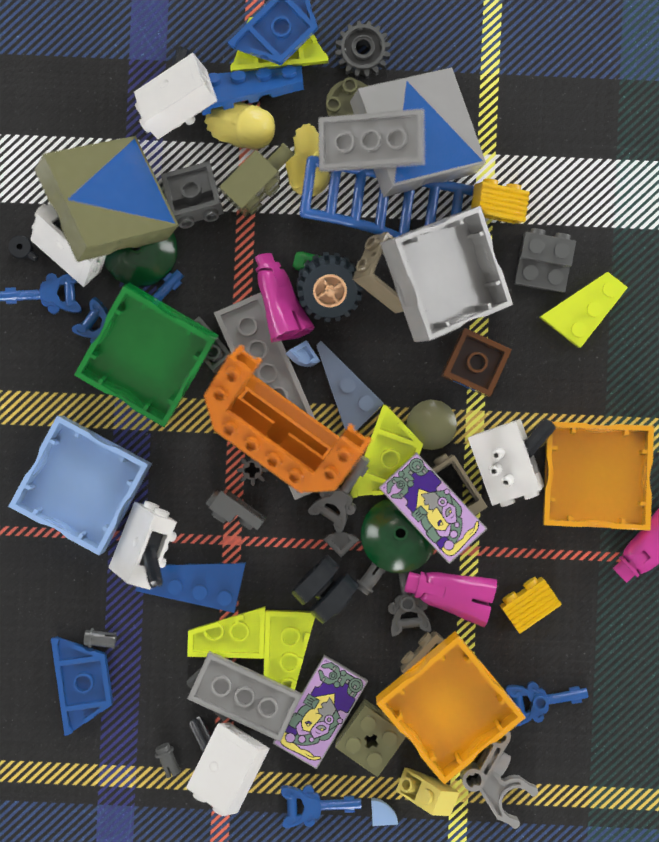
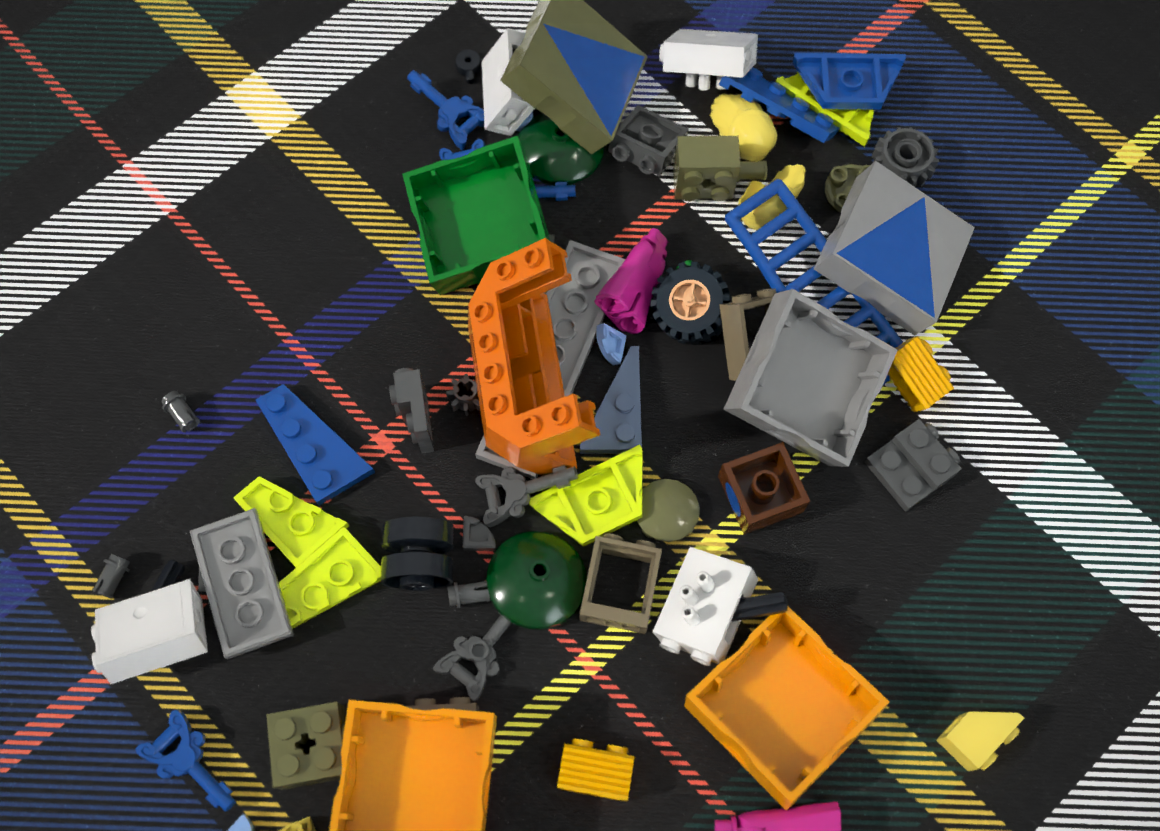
camera: 45 degrees right, 20 degrees down
(80, 484) = (310, 271): light blue tile -> none
(81, 682) = (120, 432): blue wing -> none
(143, 545) = (306, 361): white piece -> none
(321, 711) = (291, 674): tile -> none
(372, 140) = (849, 205): light grey tile -> none
(432, 508) = (593, 576): tile -> none
(457, 594) = (536, 692): dark pink piece -> none
(585, 309) = (913, 543): neon yellow wing -> none

